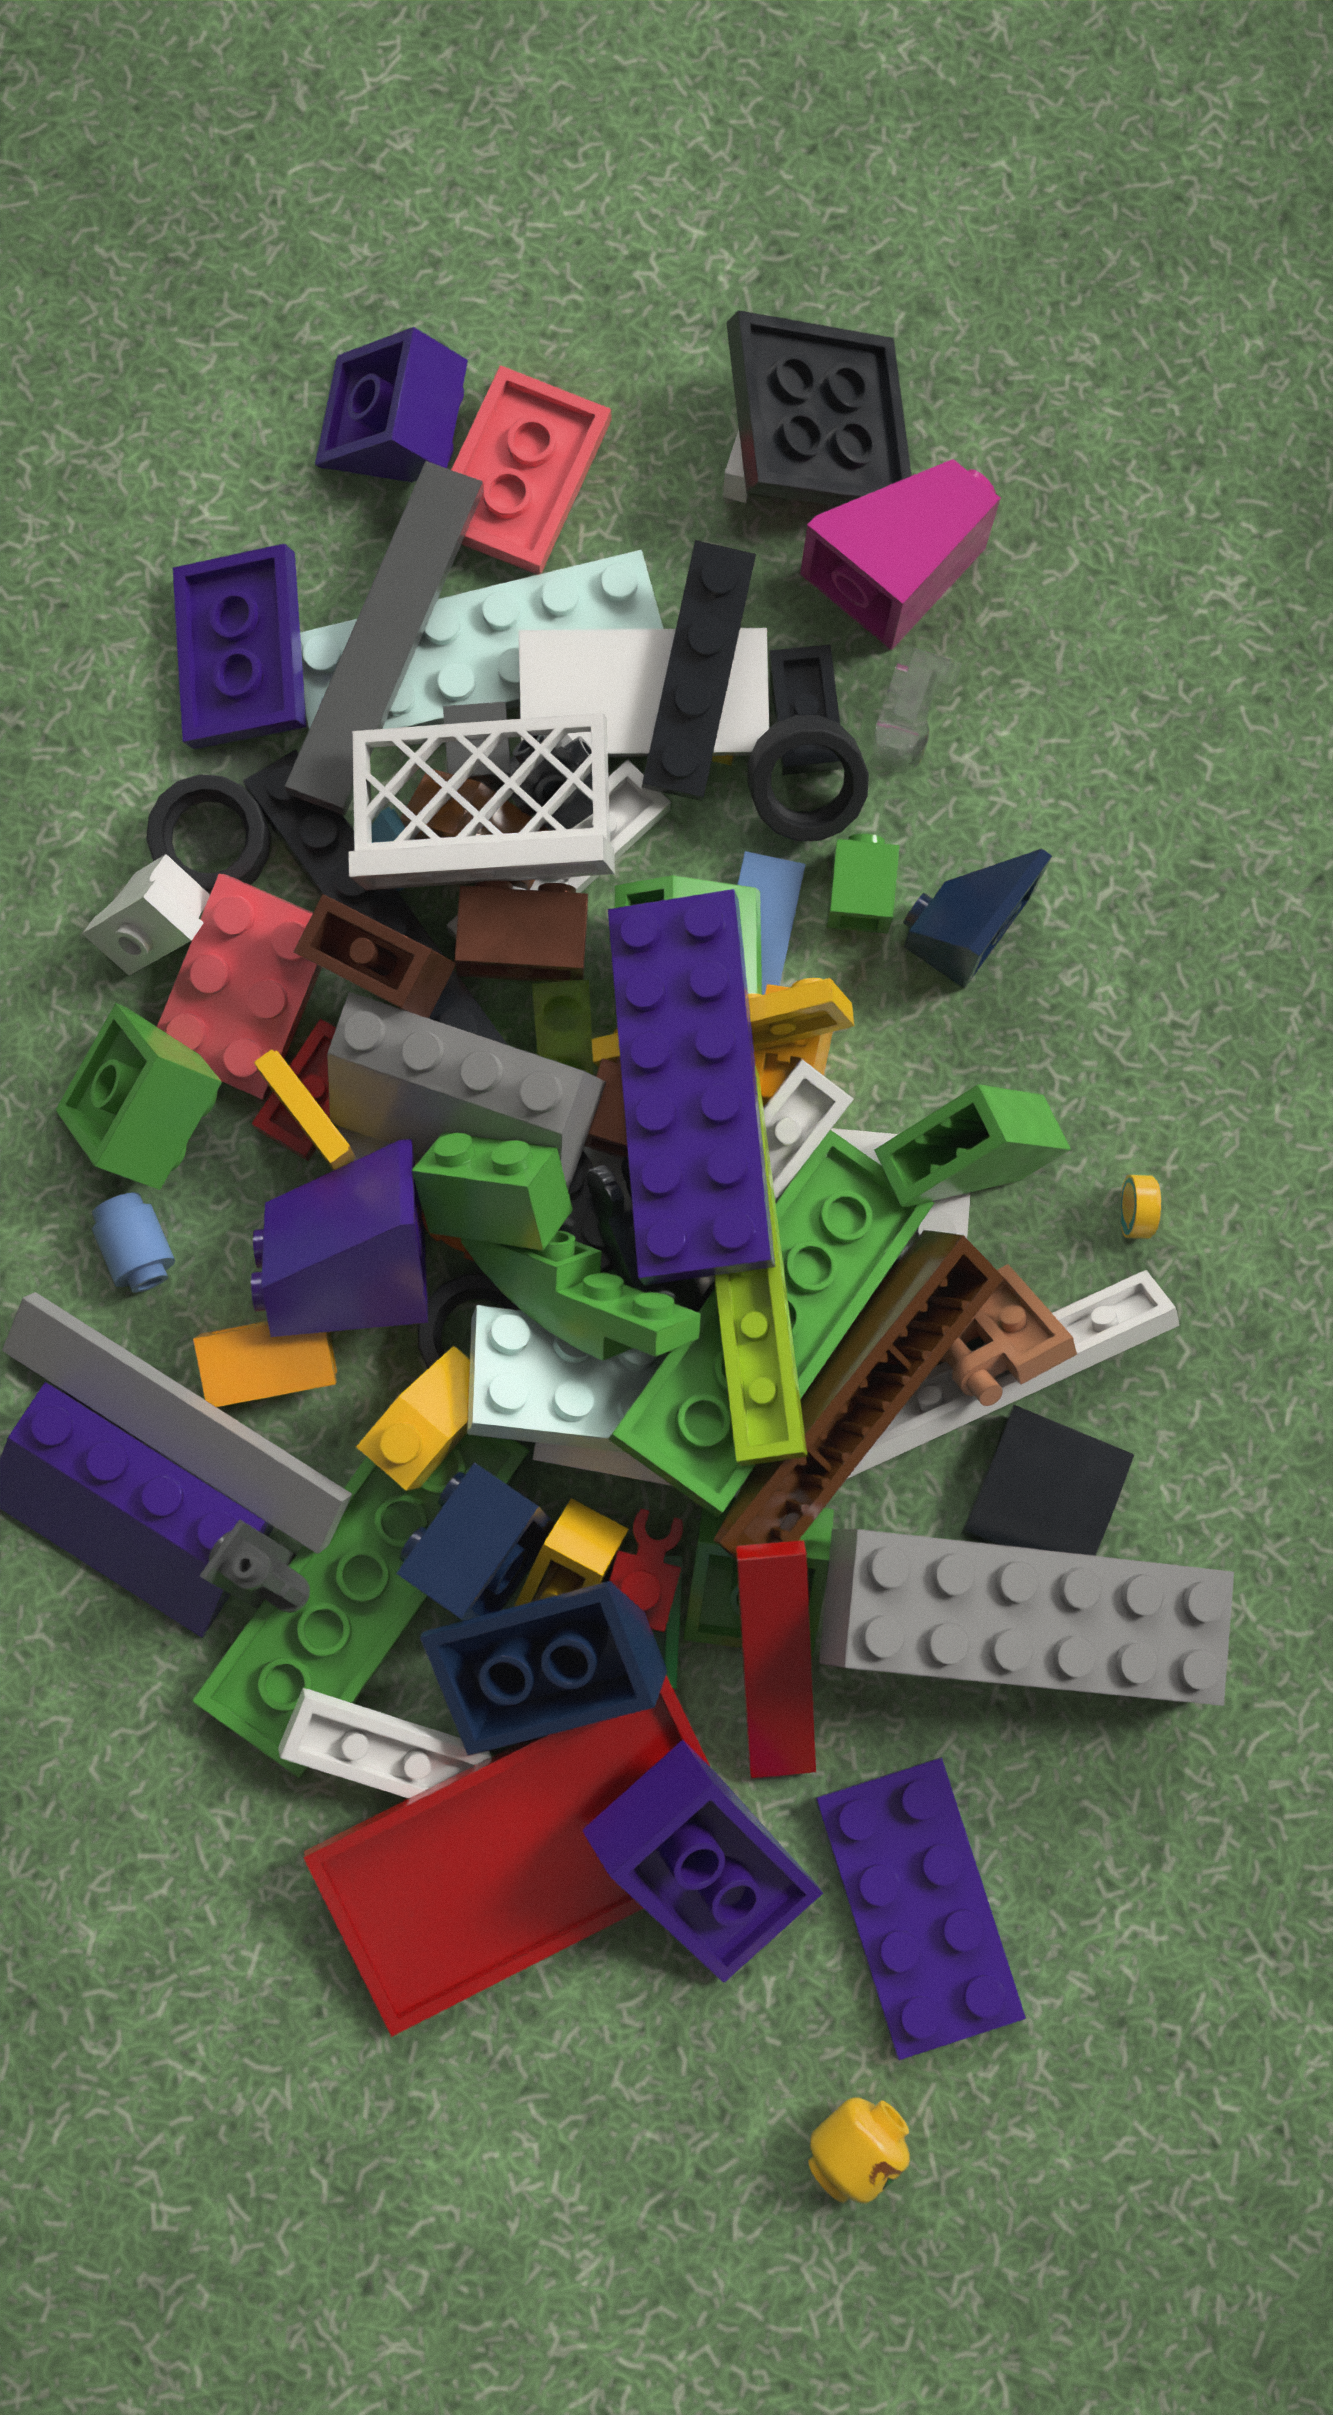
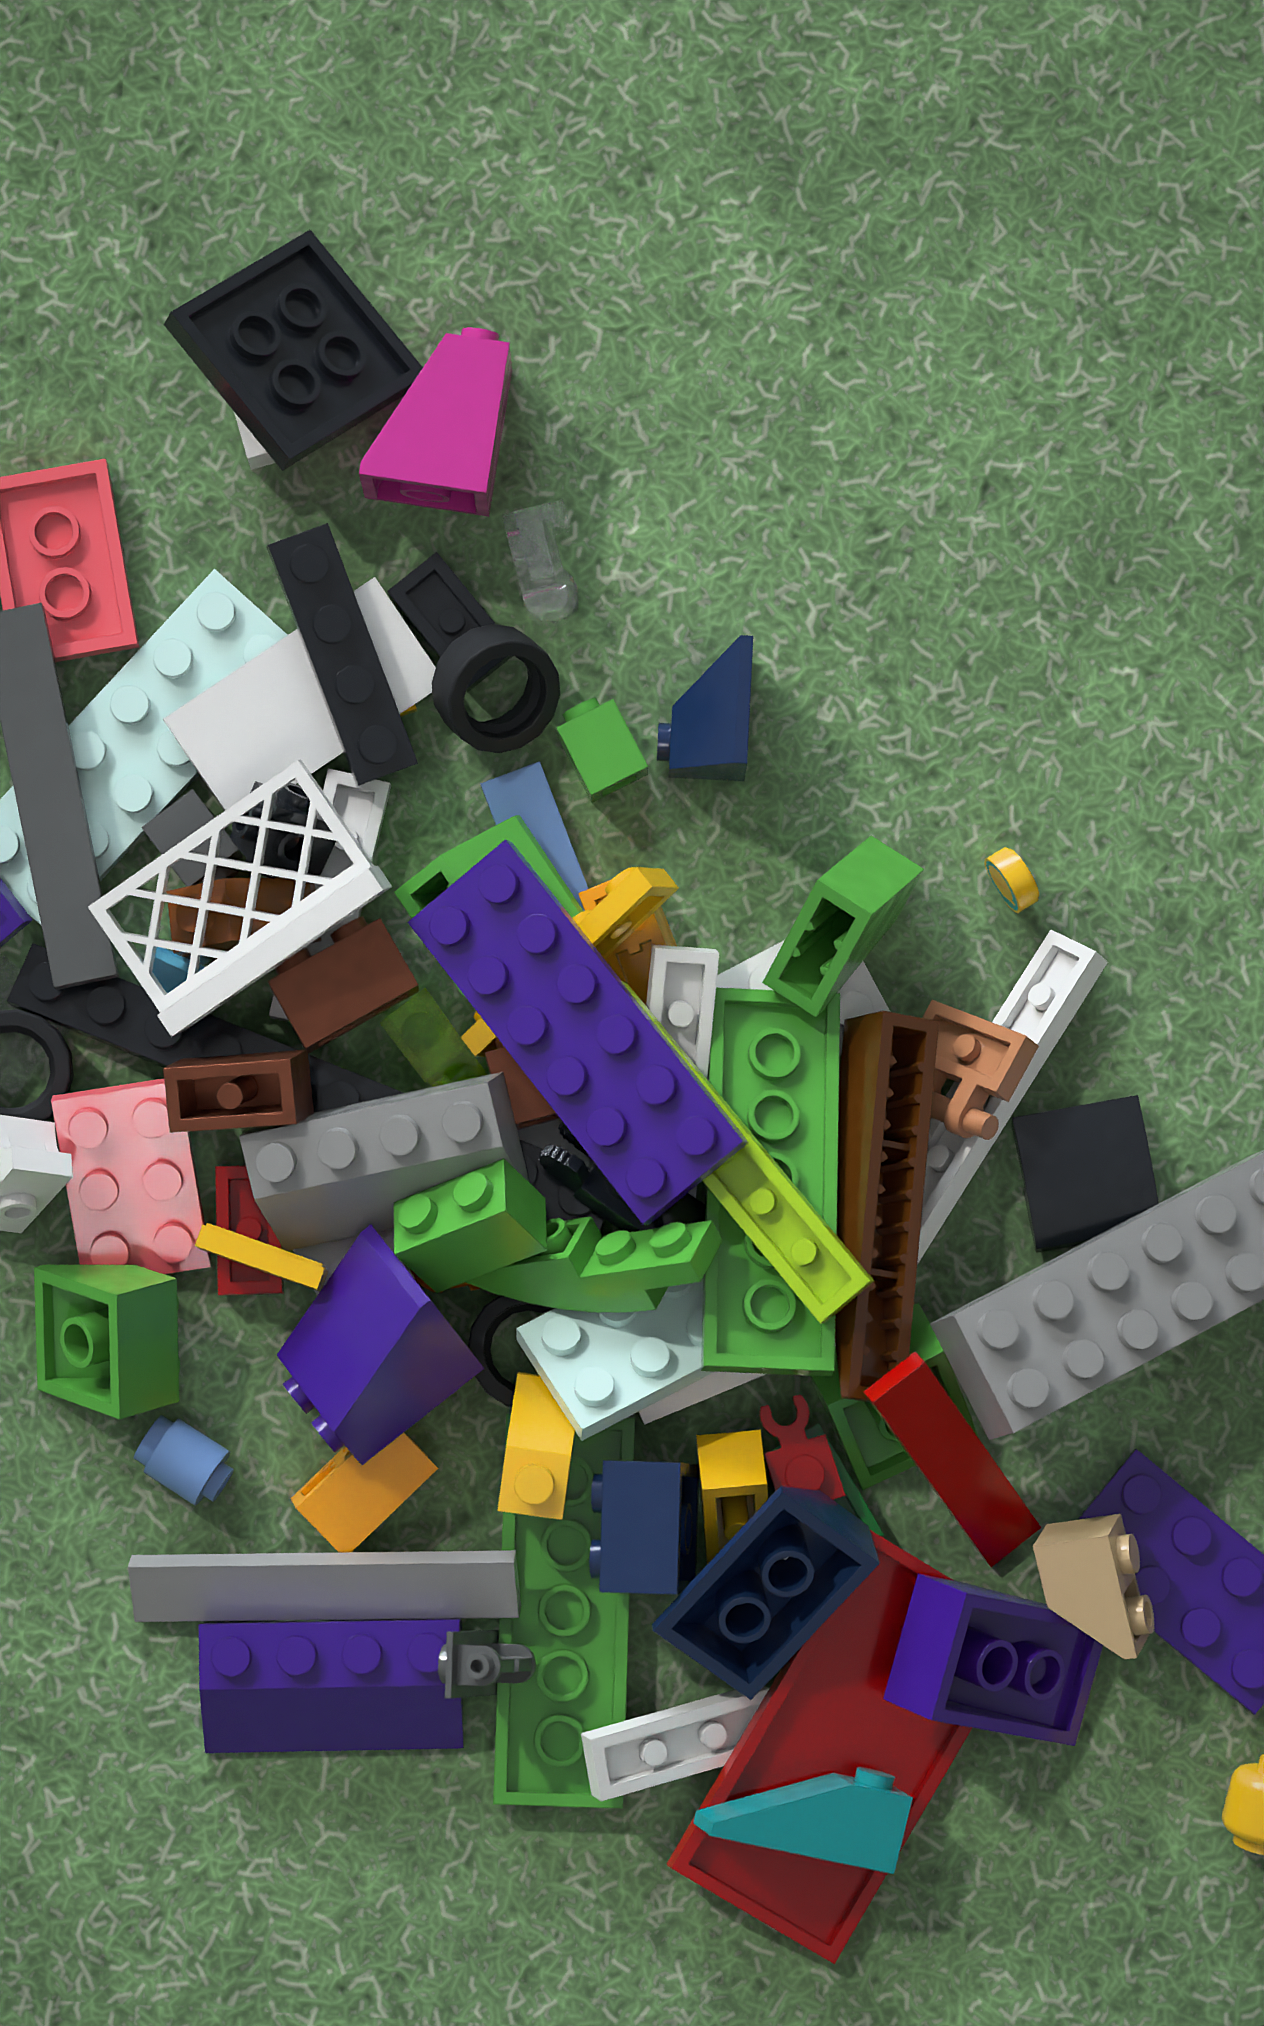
camera: 30 degrees left, 5 degrees up
(459, 1899) = (824, 1817): none -> teal slope
(830, 1847) = (1092, 1581): none -> tan slope

